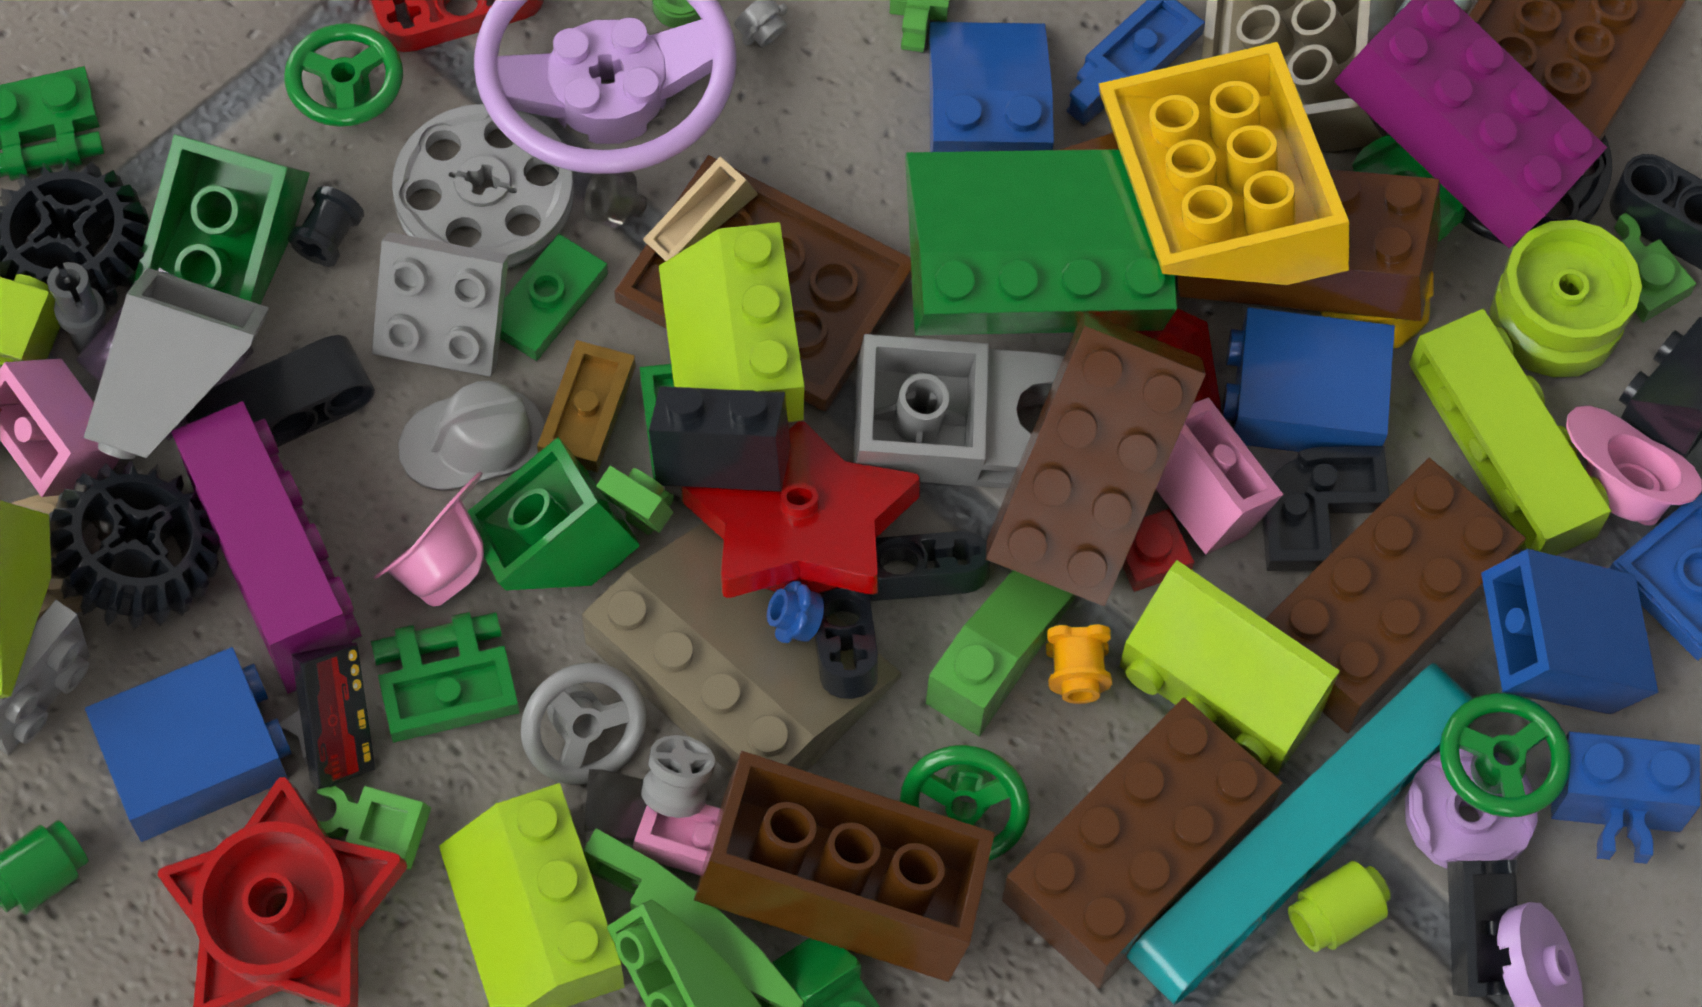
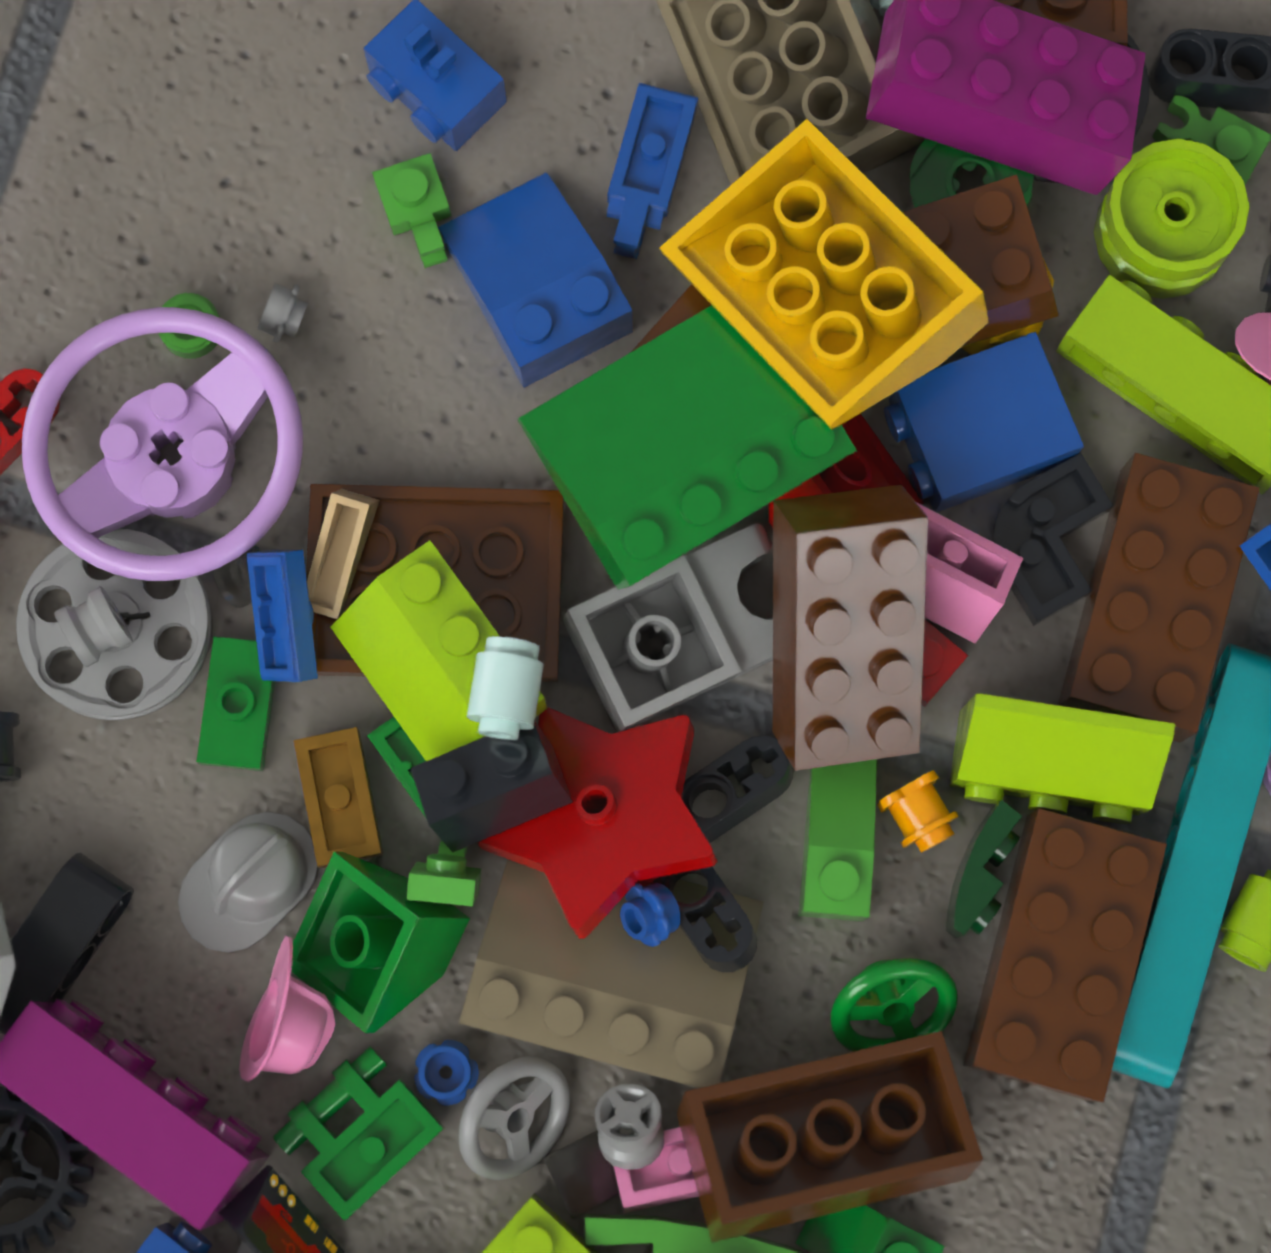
camera: 25 degrees left, 15 degrees up
(439, 304) = (147, 777): light grey plate -> none
(465, 167) = (93, 626): none -> light grey wheel
(540, 652) = (464, 1072): none -> blue plate
(624, 233) = (282, 615): none -> blue plate
(775, 348) = (505, 687): none -> light aqua brick
(1094, 746) = (974, 887): none -> dark green slope

